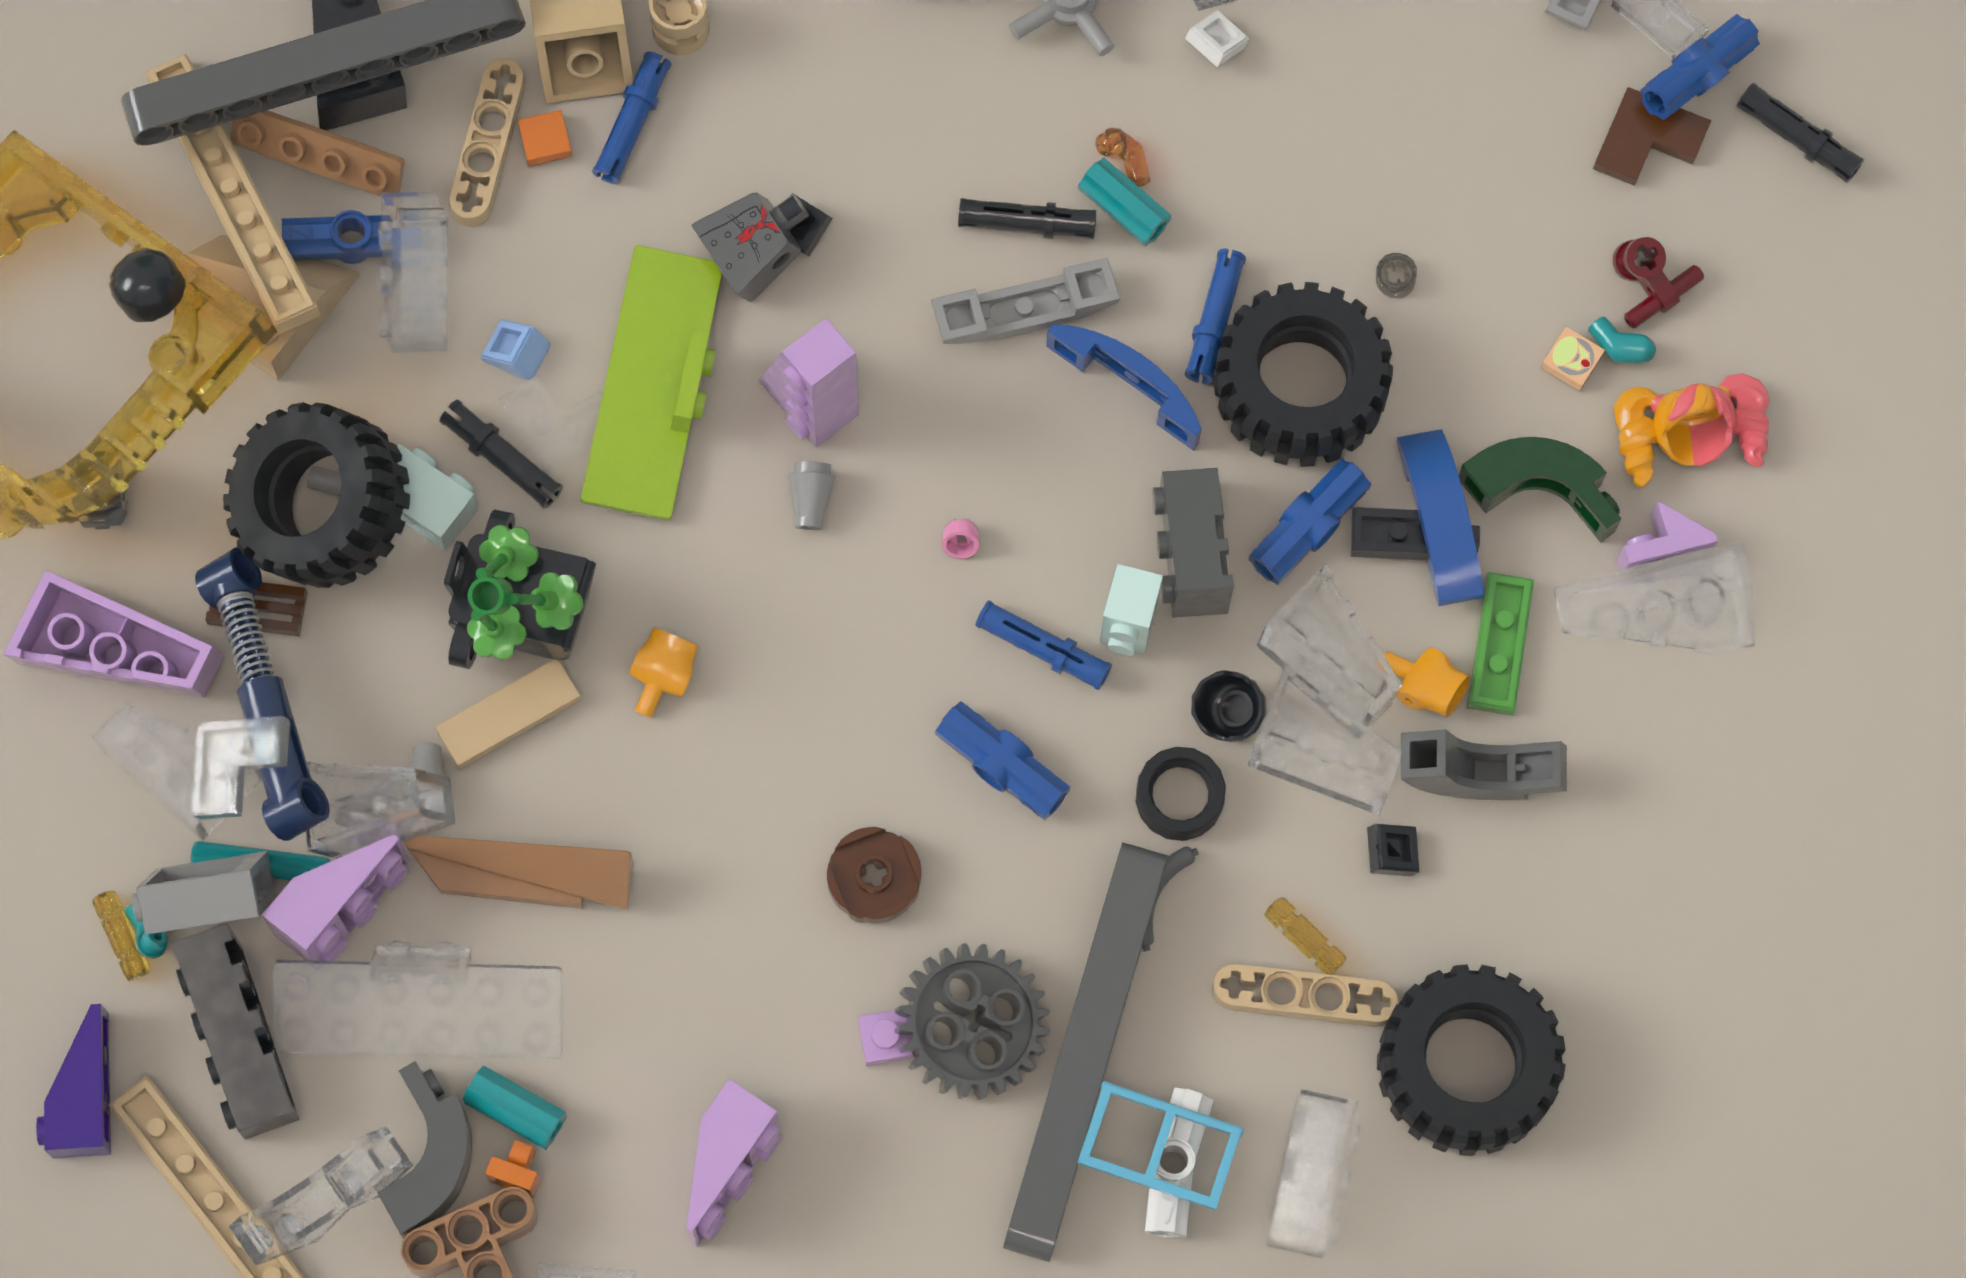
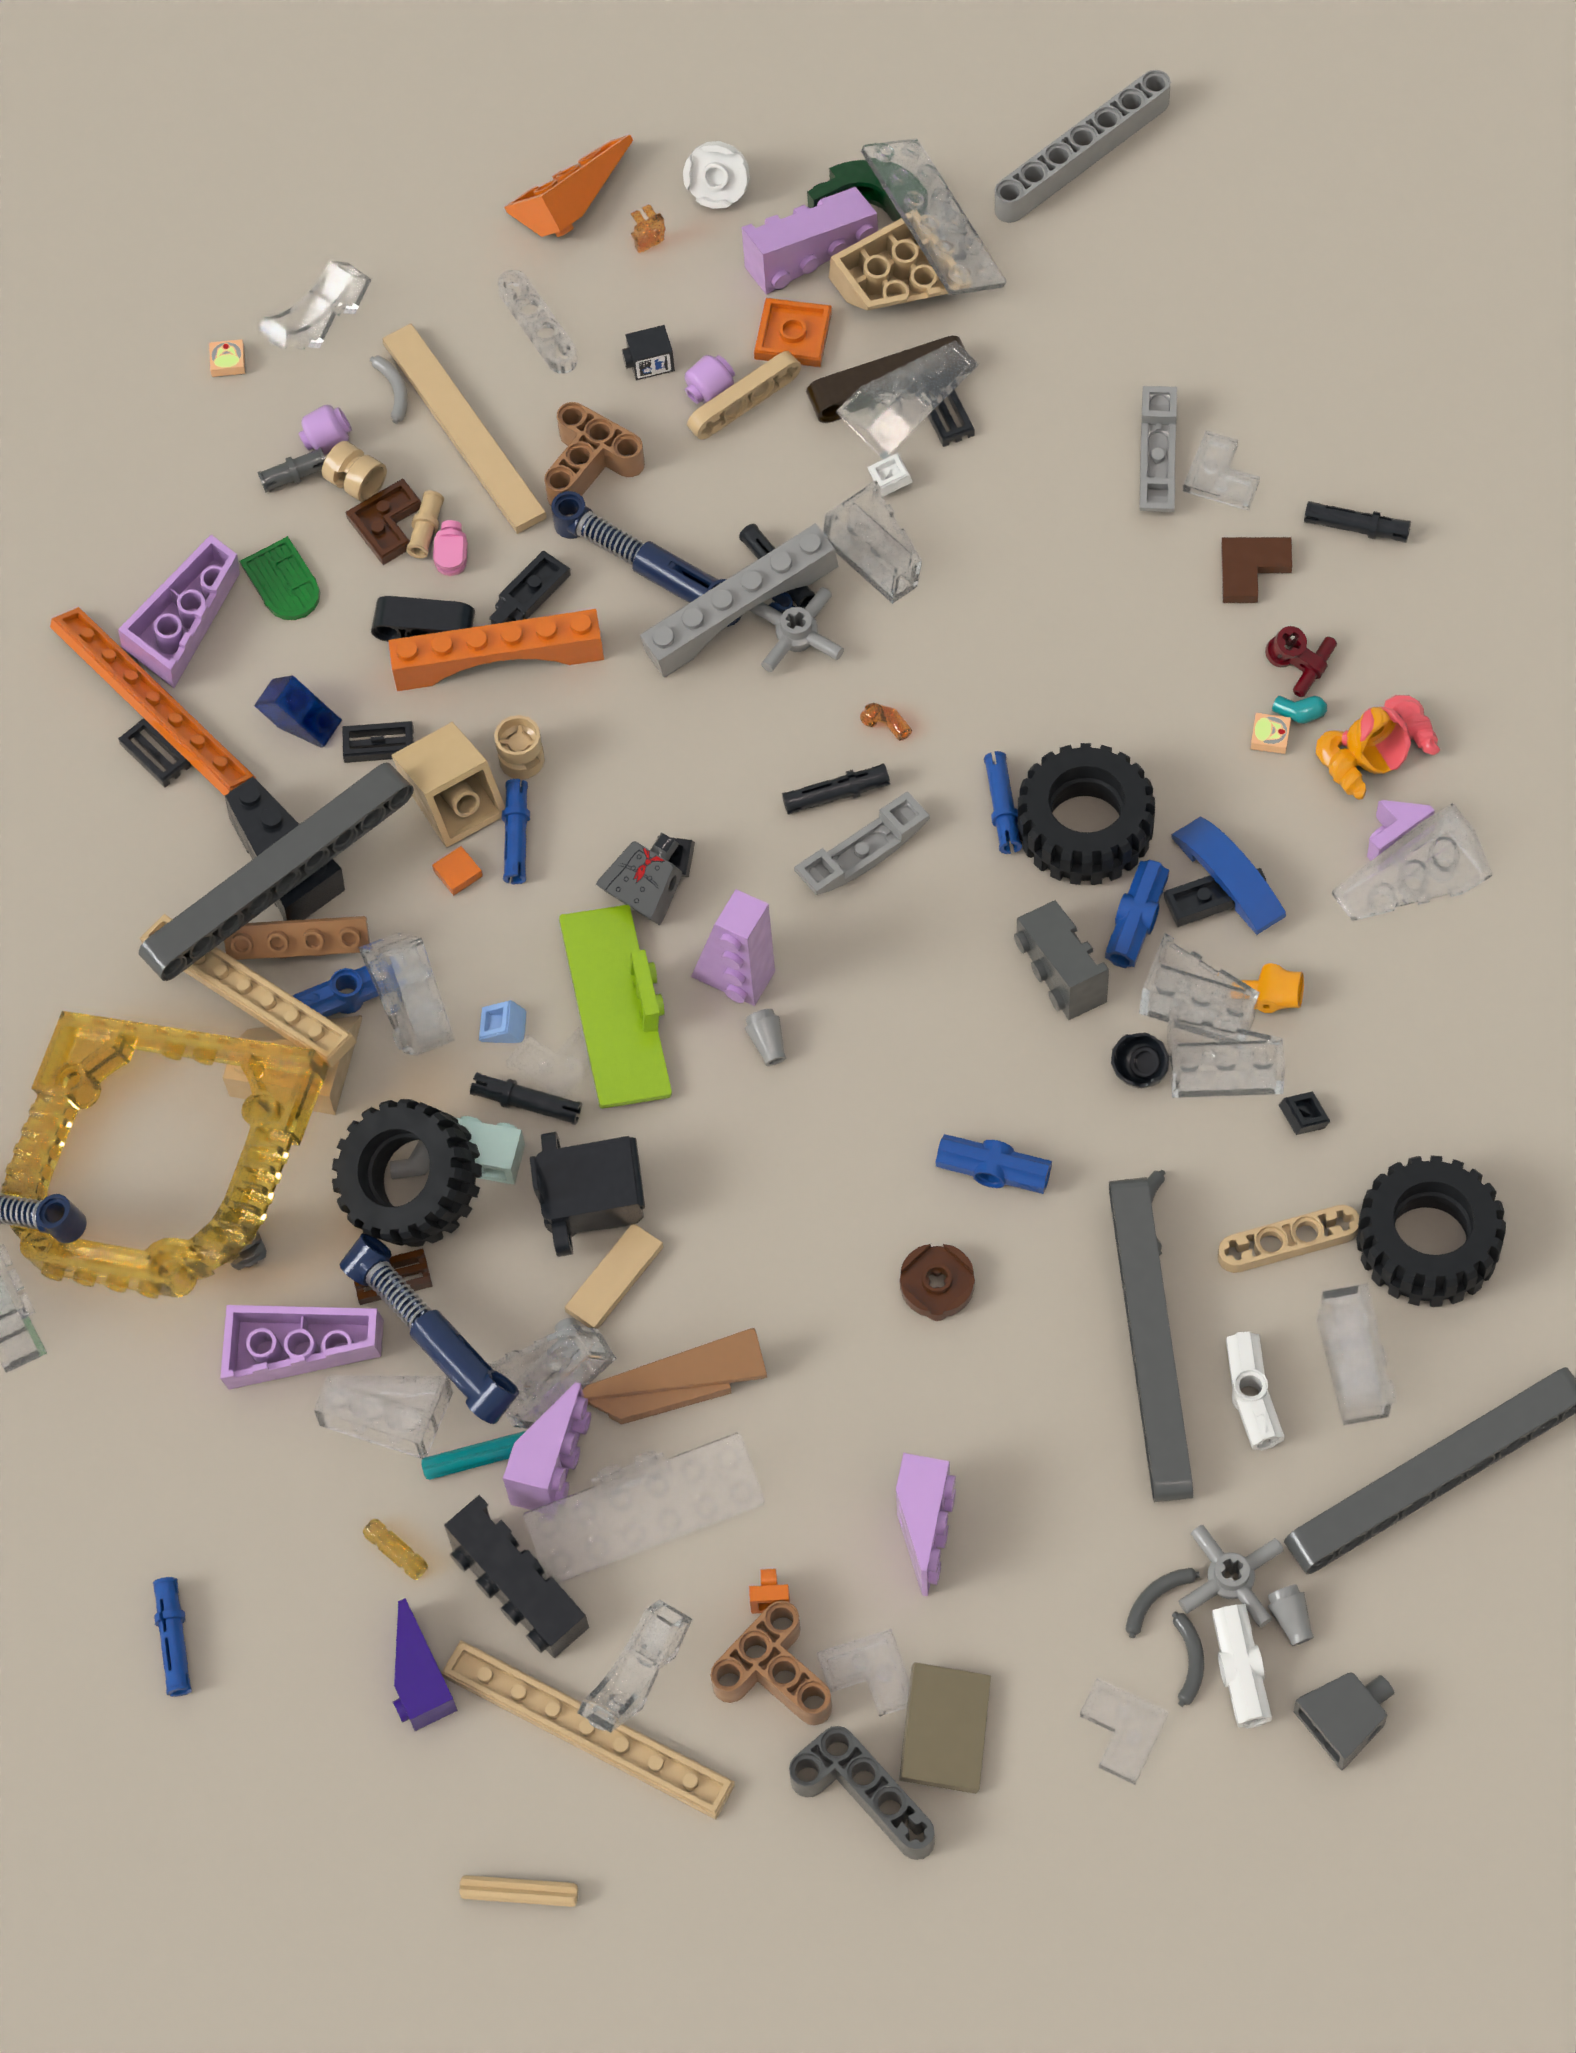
camera: 15 degrees left, 10 degrees down
(147, 285) = (219, 1068): black hair -> none
(148, 945) = (419, 1539): teal arm -> none
(205, 893) = (448, 1486): light grey window -> none
(226, 752) = (423, 1376): clear tile -> none
(443, 1169) = (714, 1621): dark grey arch -> none
(490, 142) = (416, 889): tan beam -> none
(494, 620) = (572, 1161): bright green plant -> none
(514, 1107) = (747, 1549): teal axle -> none
(664, 666) = (714, 1197): light orange piece -> none
(880, 1040) = (998, 1391): lavender plate -> none
(957, 548) = (895, 1032): bright pink hinge -> none
(957, 1061) = (1057, 1352): dark grey gear -> none
(1044, 645) = (985, 1073): blue pin -> none
(1082, 345) = (915, 858): blue slope -> none
(1124, 201) = (901, 750): teal axle -> none
(1130, 610) = (1039, 1020): light aqua brick -> none
(1148, 1179) = (1239, 1404): medium azure window -> none
(1184, 758) = (1133, 1109): black tyre -> none
(1217, 38) = (915, 616): white tile -> none
(1305, 936) = (1269, 1197): clear yellow axle -> none
(1398, 289) = (1126, 732): clear smoke bush -> none
(1469, 770) = (1341, 1034): dark grey arch -> none
(1500, 643) = (1312, 944): bright green tile -> none
(1545, 466) = (1289, 811): dark green arch -> none
(1700, 67) = (1267, 503): blue piece -> none

